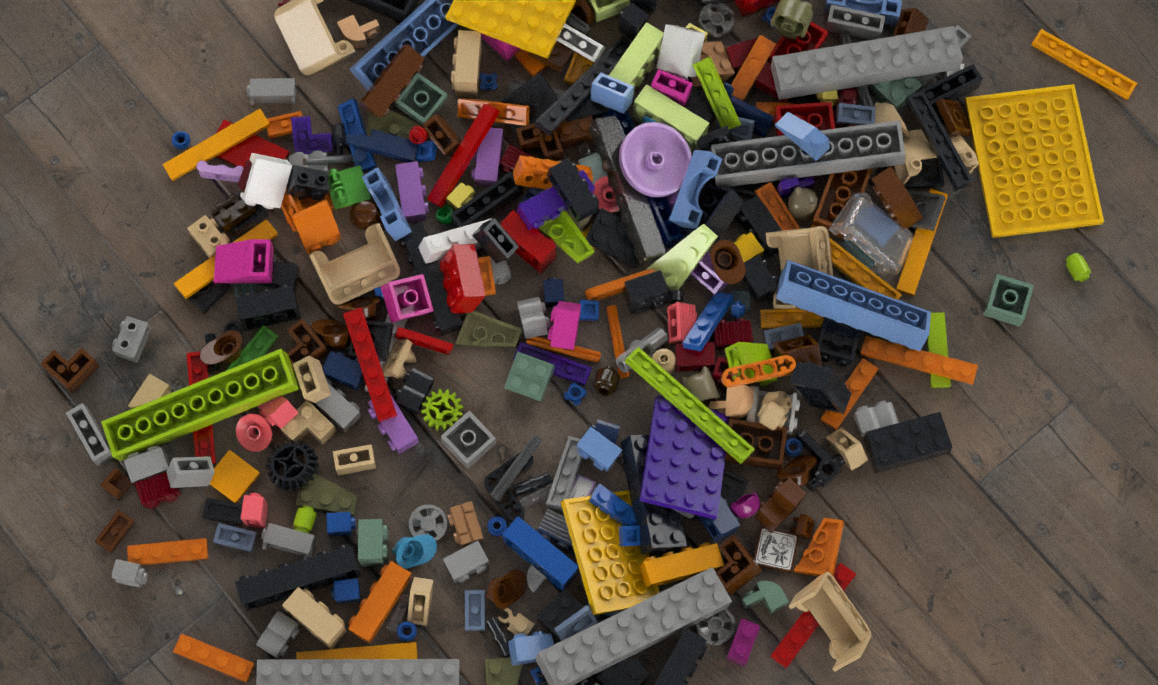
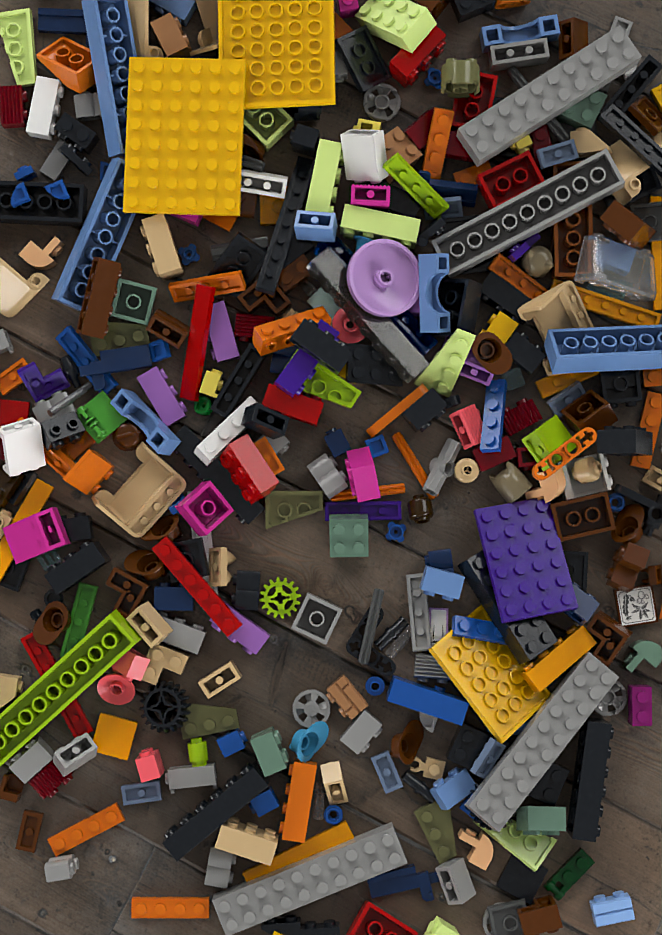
camera: 20 degrees left, 15 degrees up
(223, 511) = (119, 771): black tile -> none
(417, 134) = (145, 339): red plate -> none
(424, 340) = (236, 540): red tile -> none
(629, 535) = (502, 652): blue plate -> none
(689, 405) = (509, 508): lime tile -> none
(738, 309) = (516, 392): blue plate -> none
(746, 505) = (596, 580): magenta hair -> none
(772, 415) = (590, 487): tan head -> none
(804, 135) = (518, 199): medium blue slope -> none

